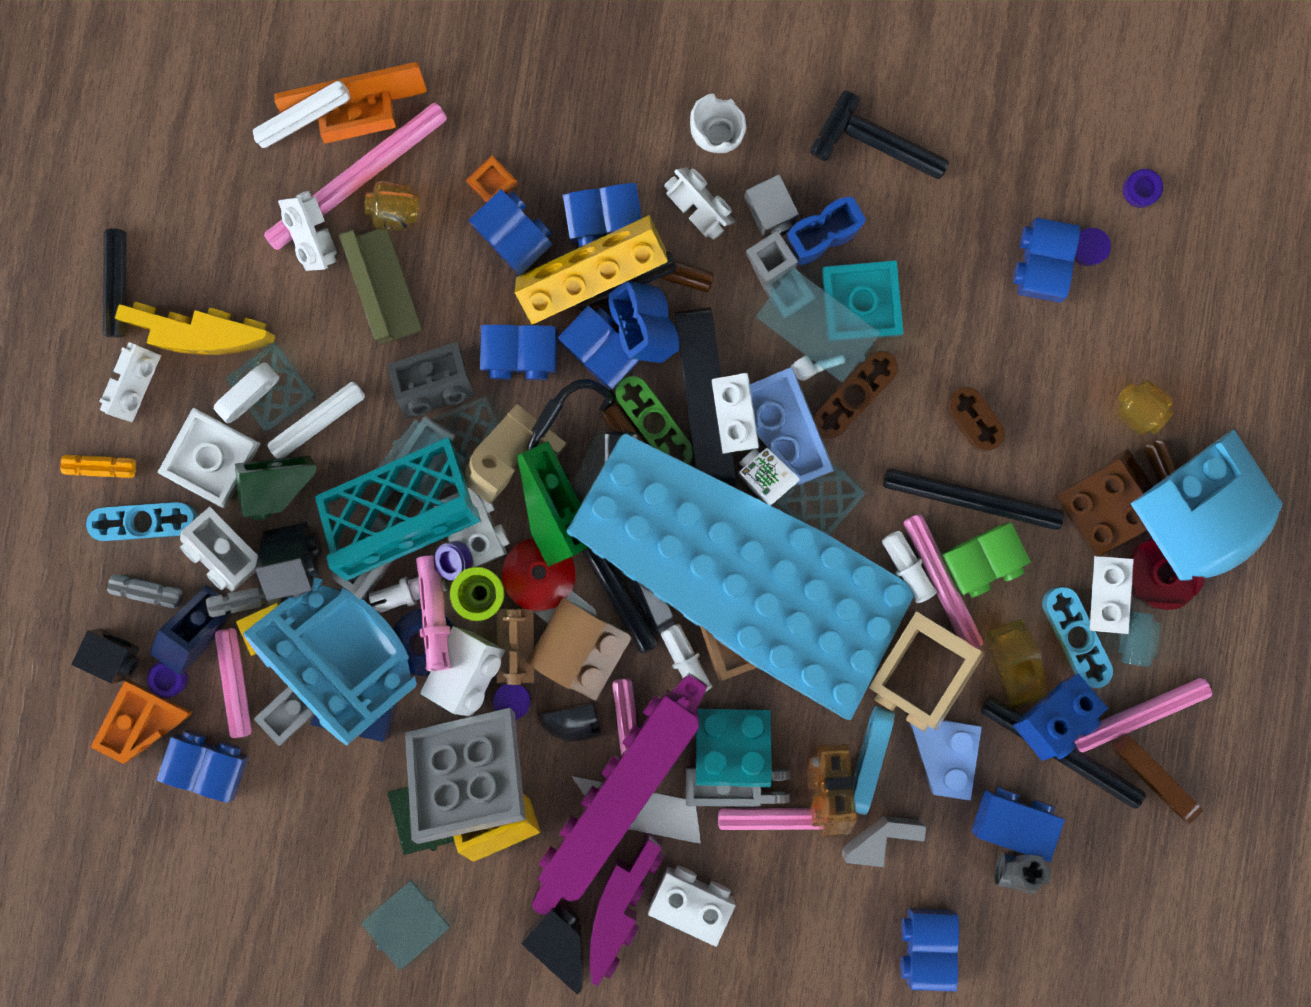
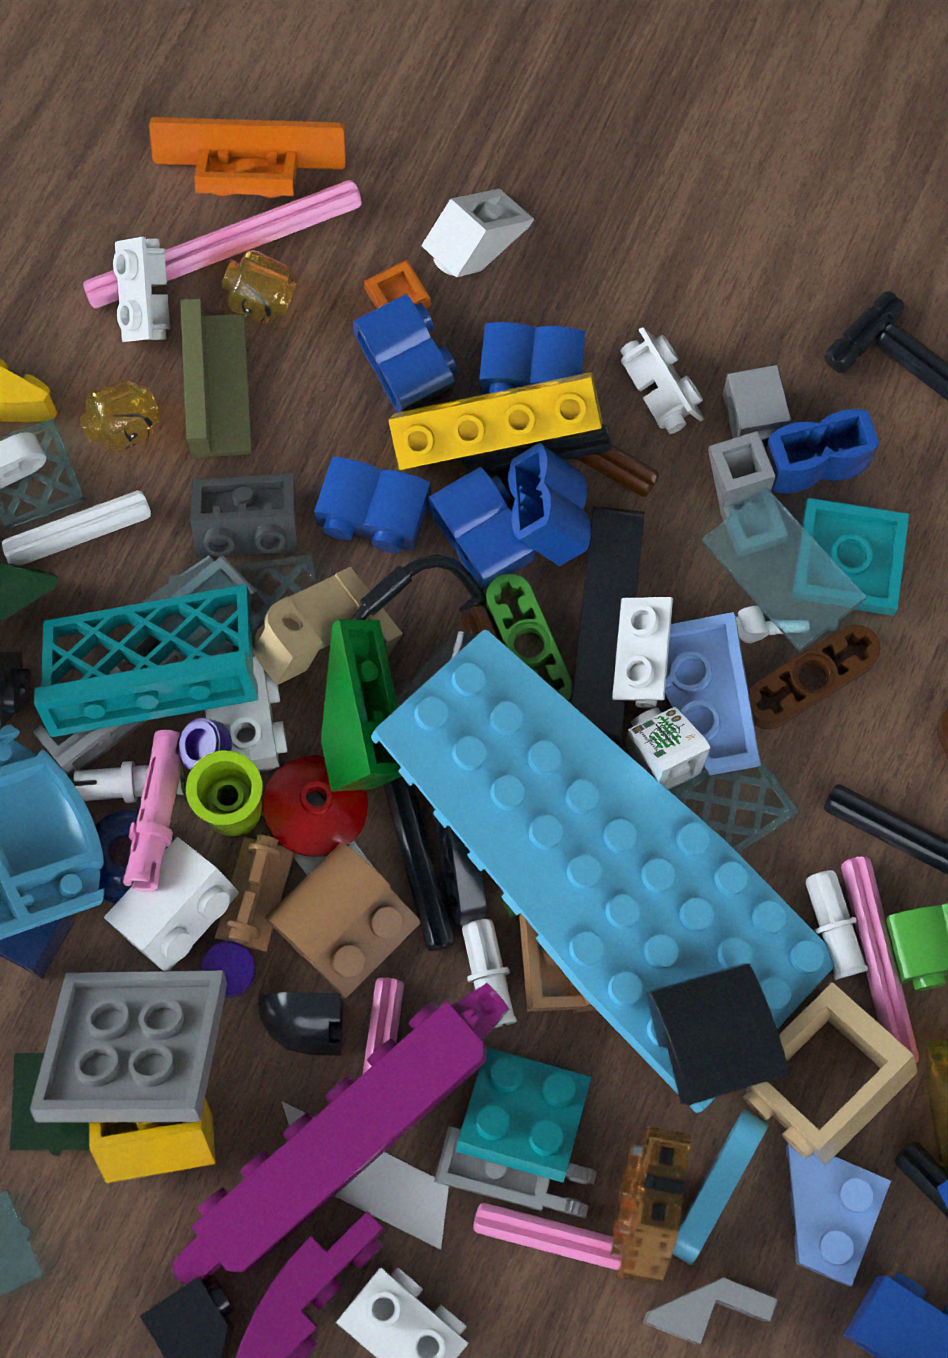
camera: 10 degrees right, 15 degrees down
(301, 114) = (177, 150): white axle -> none
(321, 330) = (120, 415): none -> clear yellow head
(536, 120) = (475, 231): none -> white slope
(717, 124) = (709, 290): white hair -> none
(849, 671) = (717, 1033): none -> black slope

